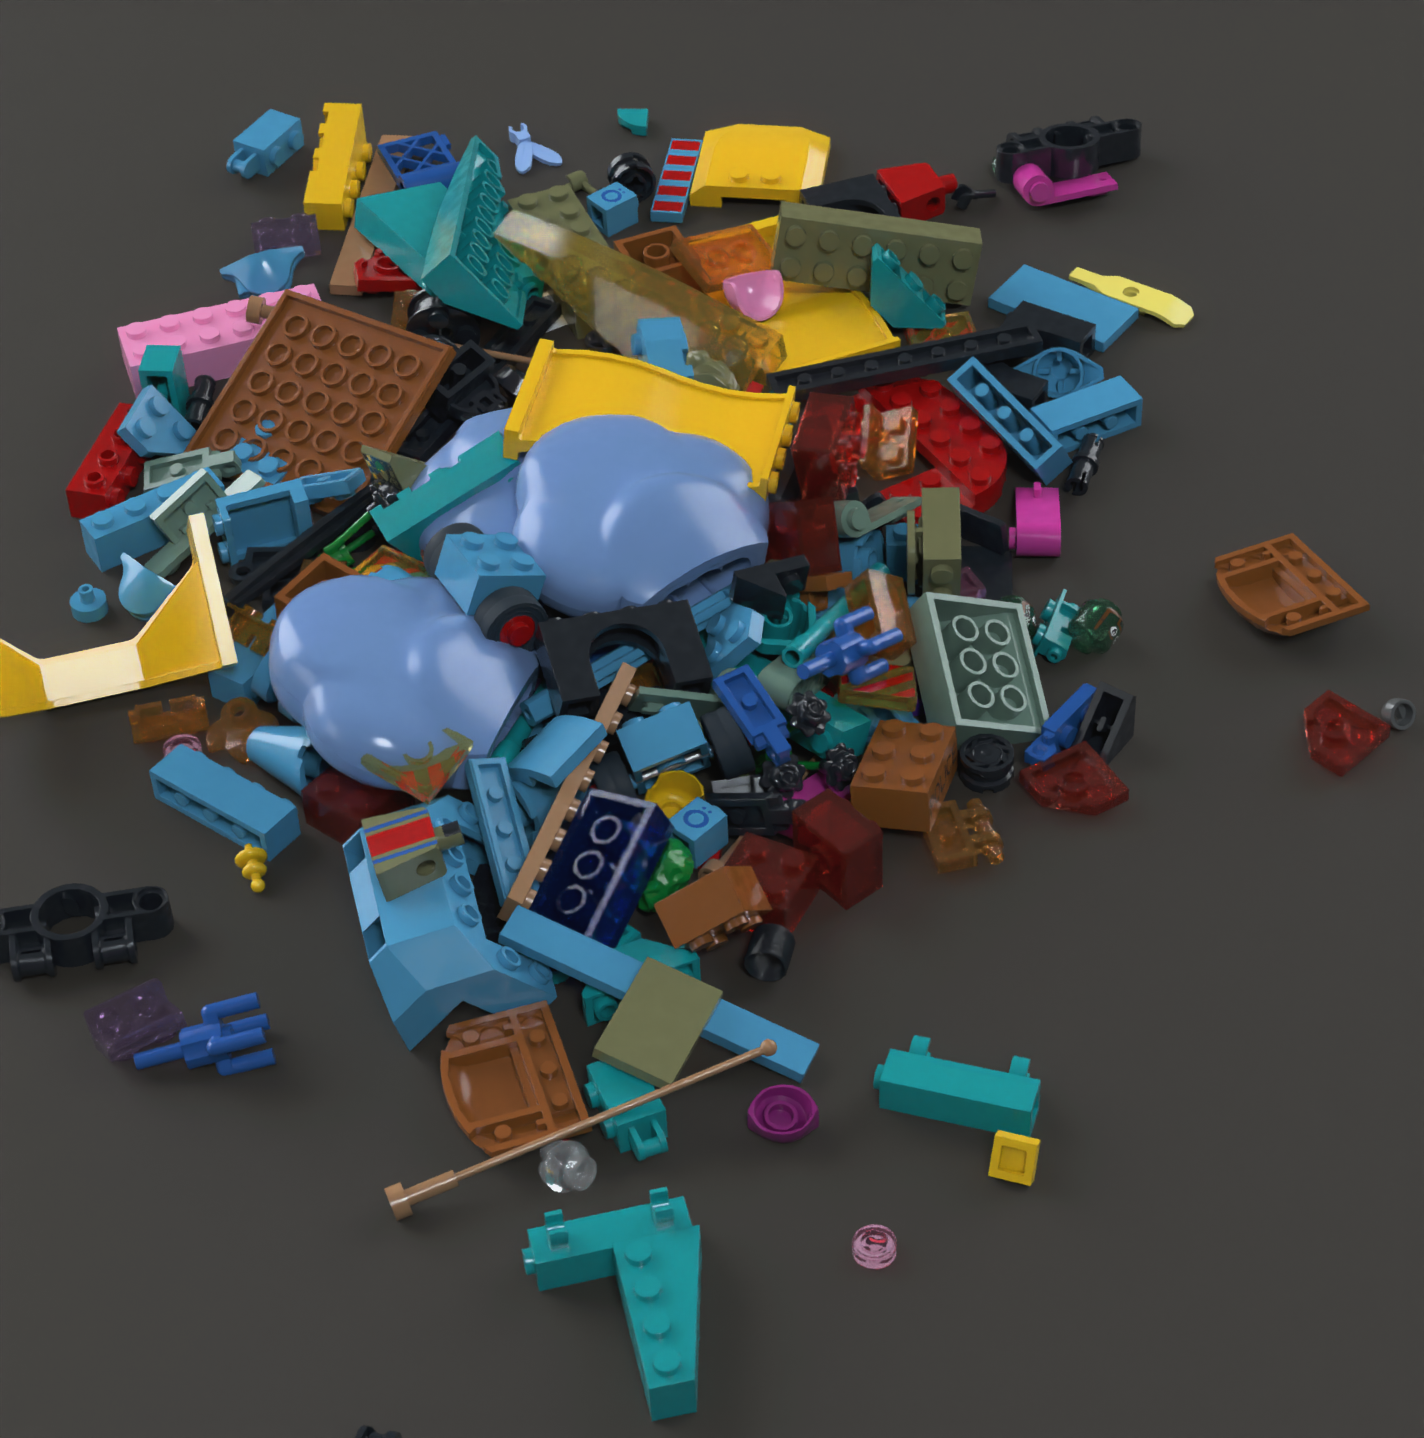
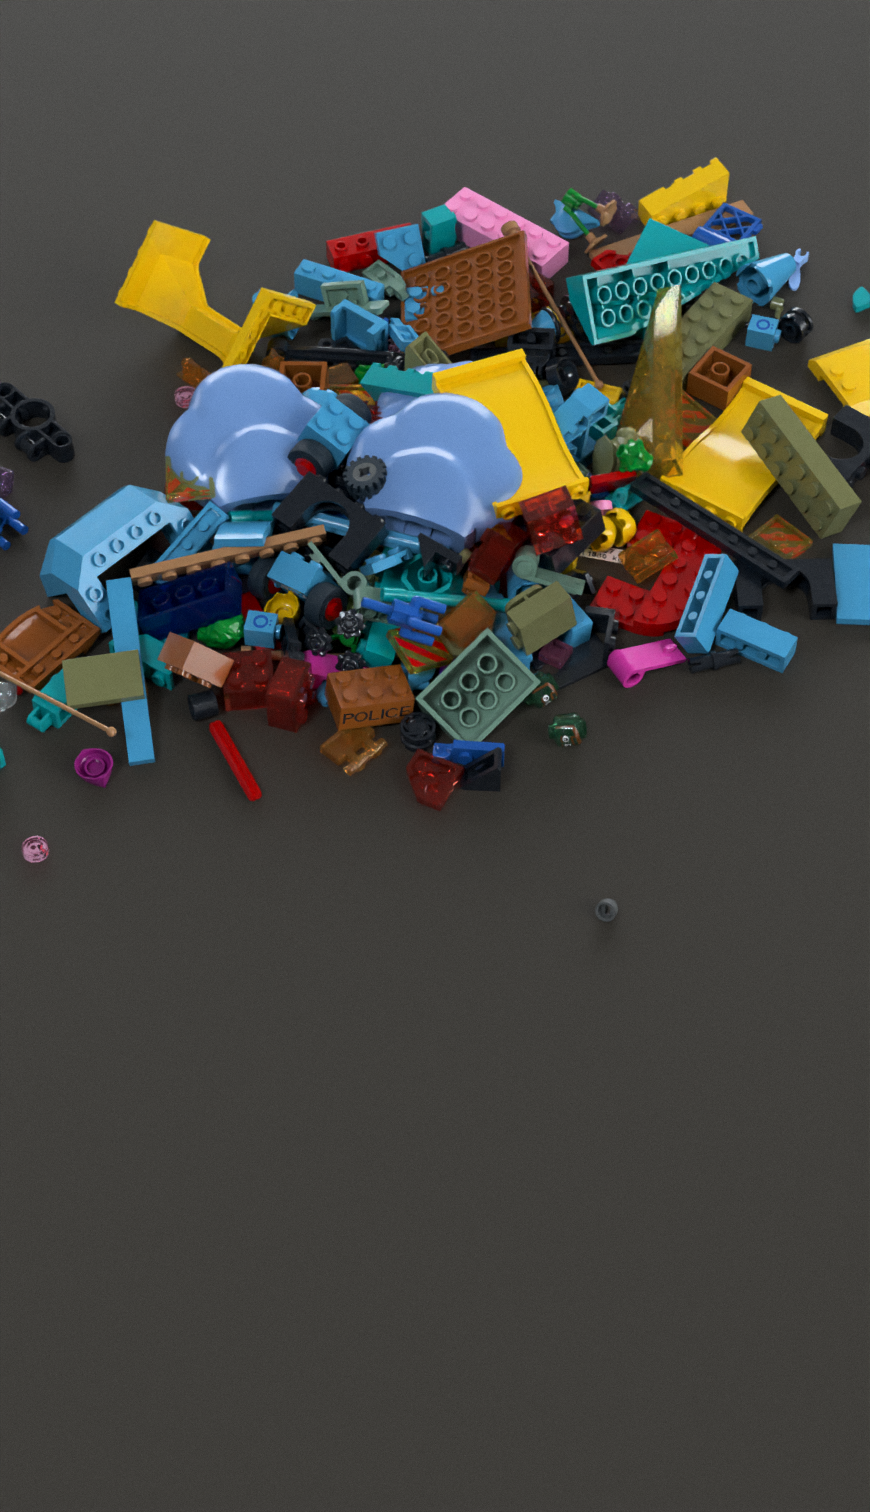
camera: 55 degrees right, 10 degrees up
(225, 801) = (156, 424): dark azure brick -> none
(252, 866) = (126, 463): yellow hair -> none
(266, 144) = (683, 156): dark azure brick -> none
(296, 233) = (574, 200): none -> plant
(408, 849) = (112, 508): olive torso -> none
(537, 163) = (765, 277): none -> dark azure cone
(609, 587) = (366, 485): none -> black wheel
(676, 181) = (801, 353): tile -> none
(722, 255) = (735, 398): clear orange tile -> none
(747, 363) = (634, 456): none -> green rock
(754, 712) = (333, 600): blue hinge -> none
(755, 293) = (719, 430): bright pink helmet -> none
(887, 963) = (235, 760): none -> red axle
(901, 295) = (781, 497): teal slope -> none
(958, 1091) = (157, 836): teal brick -> none
(1014, 1157) = (127, 879): yellow tile -> none
(1053, 636) = (545, 712): teal hinge -> none
(1064, 369) = (784, 607): dark azure hat -> none
(1285, 587) = (671, 804): dark orange slope -> none
(1341, 732) = (567, 888): clear red plate -> none

